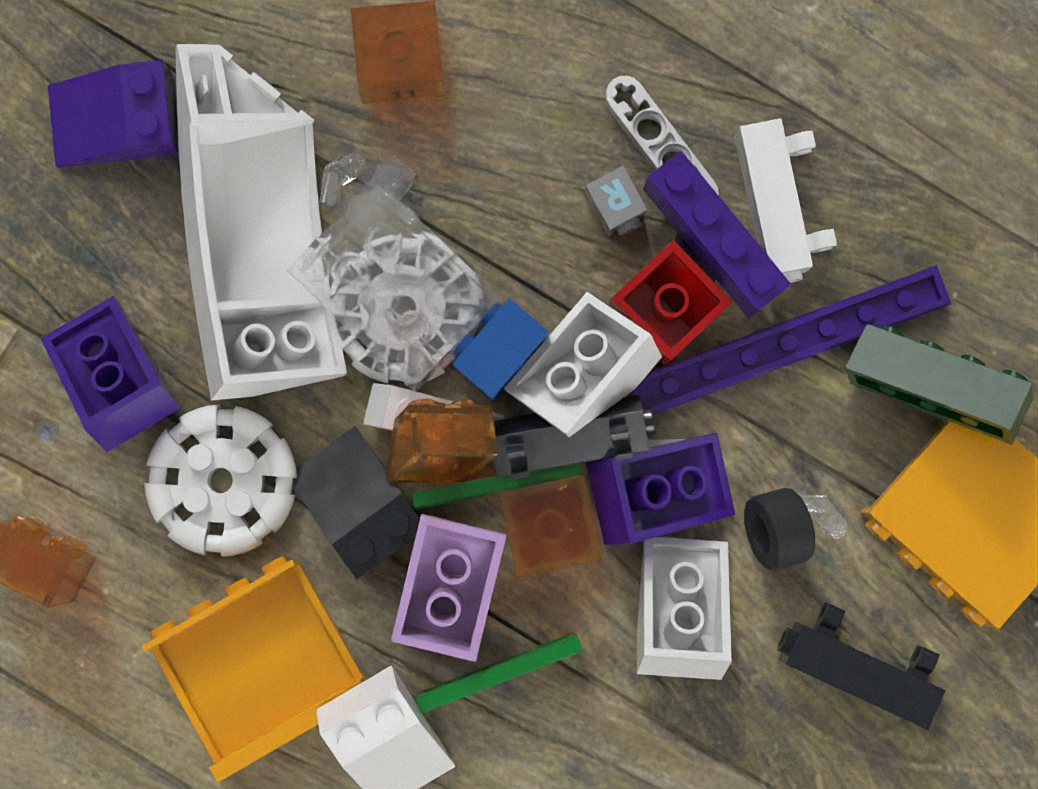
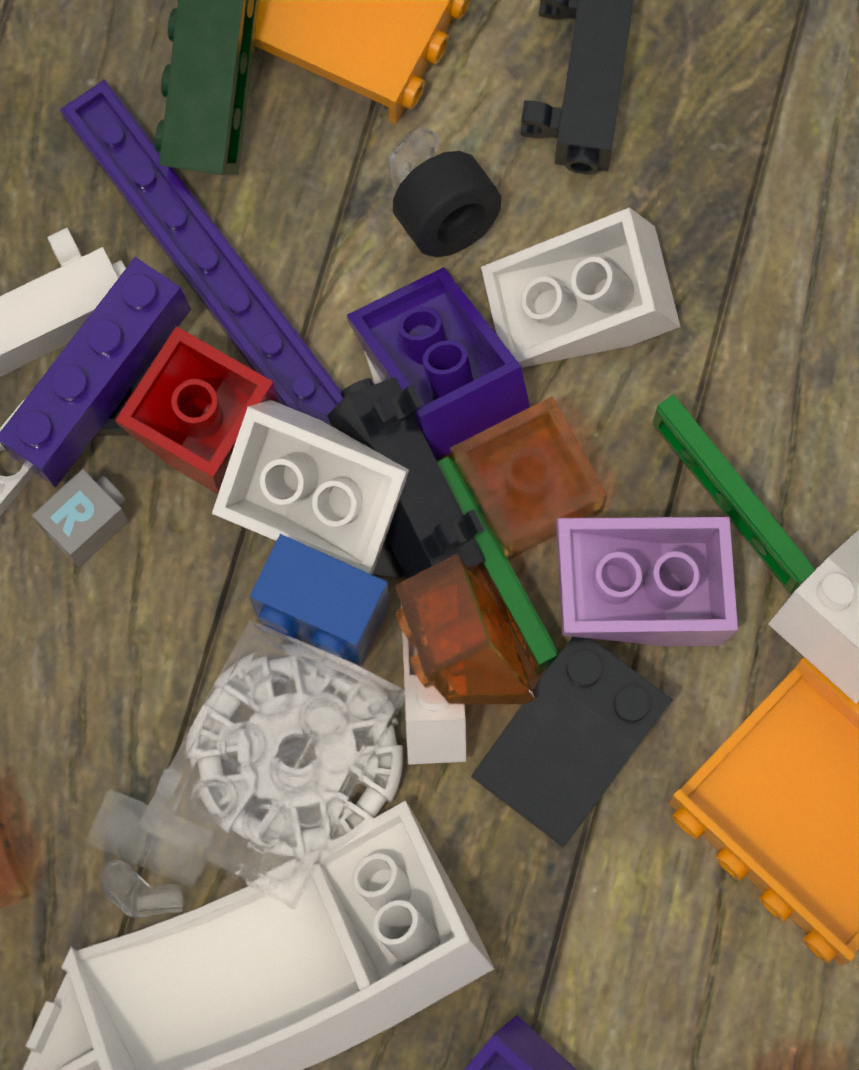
camera: 105 degrees left, 10 degrees down
(195, 486) = (591, 969): white plate -> none

